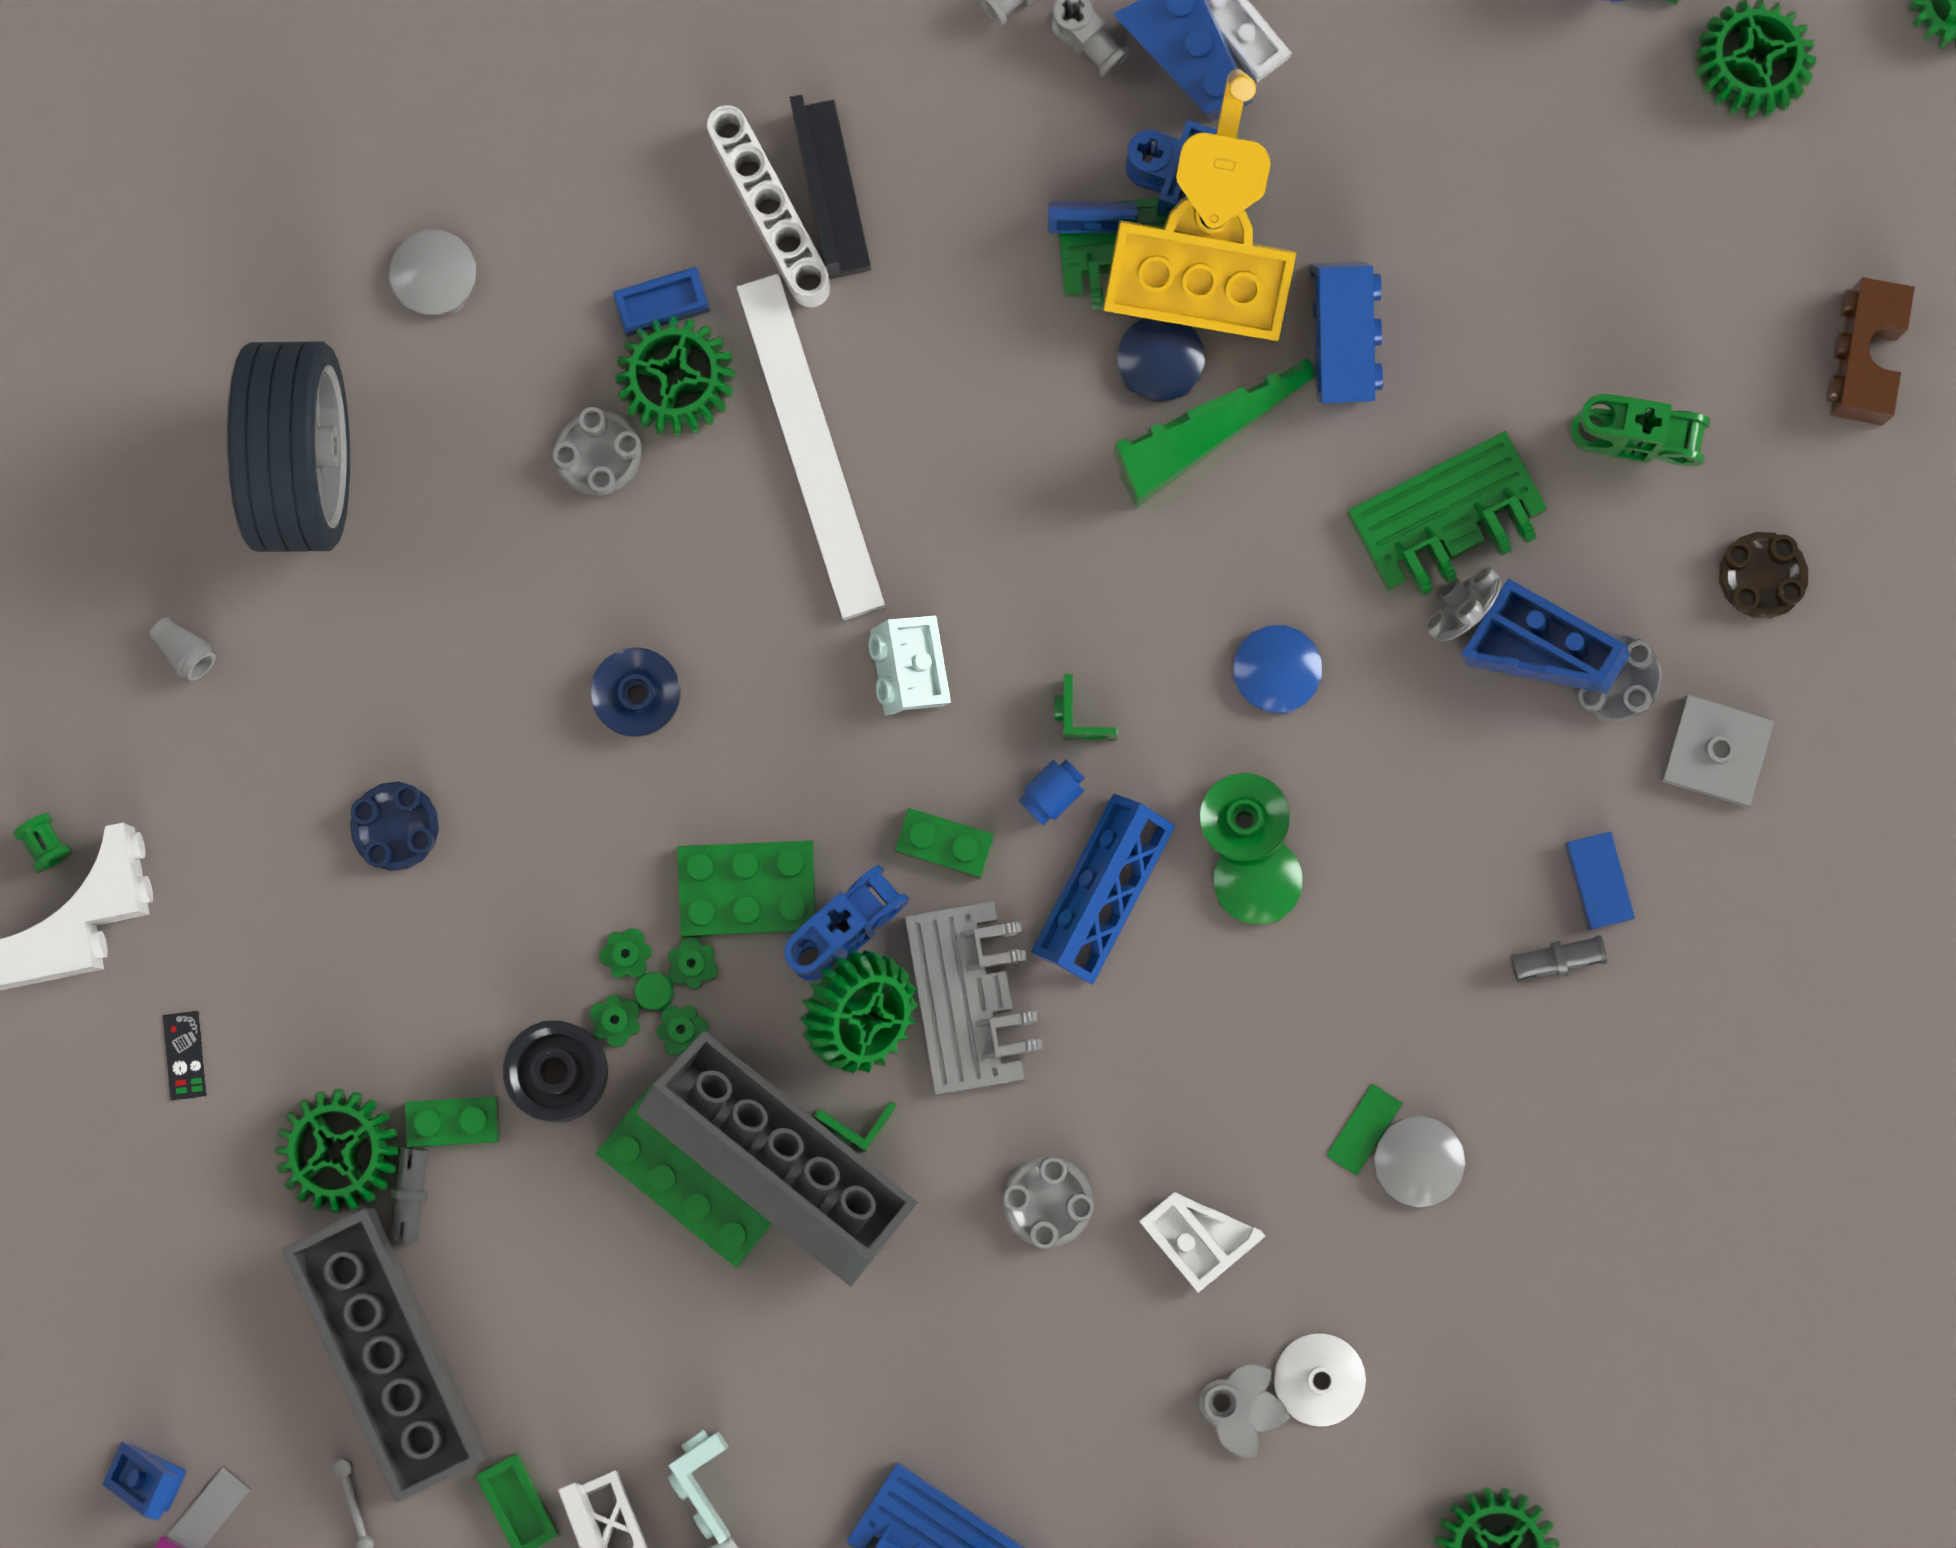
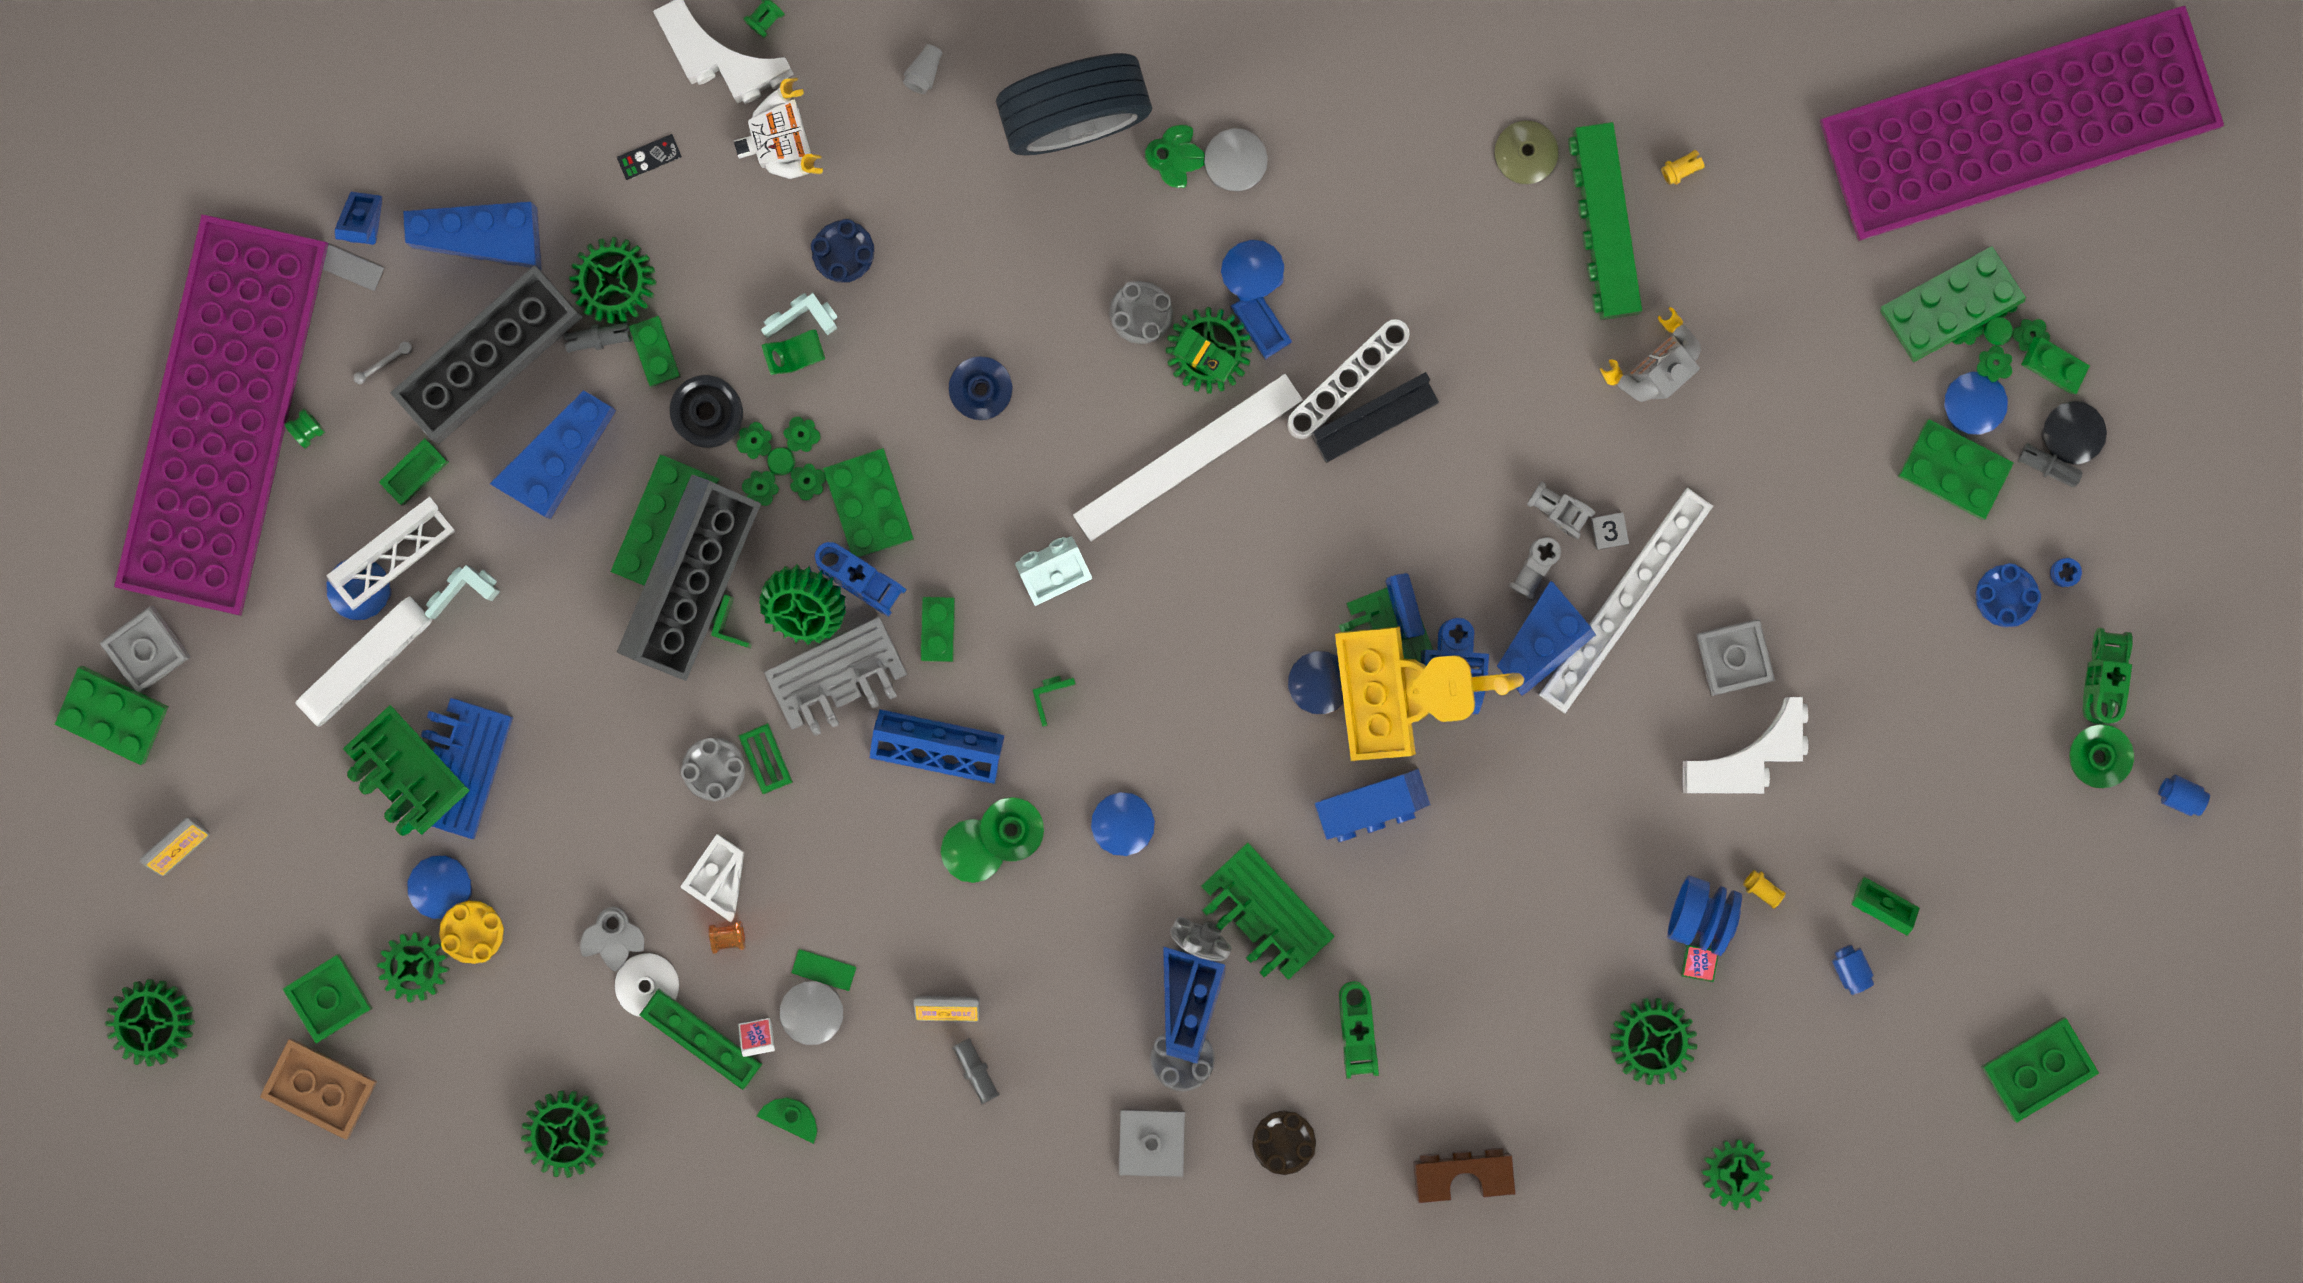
camera: 70 degrees right, 5 degrees up
(210, 865) = (779, 135): none -> torso
(213, 1317) = (482, 232): none -> blue wedge
(402, 343) = (1180, 155): none -> green plate
(470, 876) = (823, 314): none -> light aqua bracket
(512, 928) = (794, 353): none -> green bracket
(557, 1300) = (554, 458): none -> blue wedge
(585, 289) = (1252, 269): none -> blue dish
(681, 376) = (1204, 355): none -> green leg
(1015, 1131) = (755, 733): none -> green tile
(1052, 791) = (993, 693): blue brick -> none
(1179, 445) = (1254, 709): green wedge -> none
(1285, 1247) = (727, 937): none -> clear orange bush
(1414, 1324) = (700, 1039): none -> green tile
(1433, 1246) = (756, 1037): none -> tile
(1462, 974) = (947, 1008): none -> slope
(1554, 1229) = (791, 1116): none -> green plate
(1600, 880) = (1038, 1085): blue tile -> none

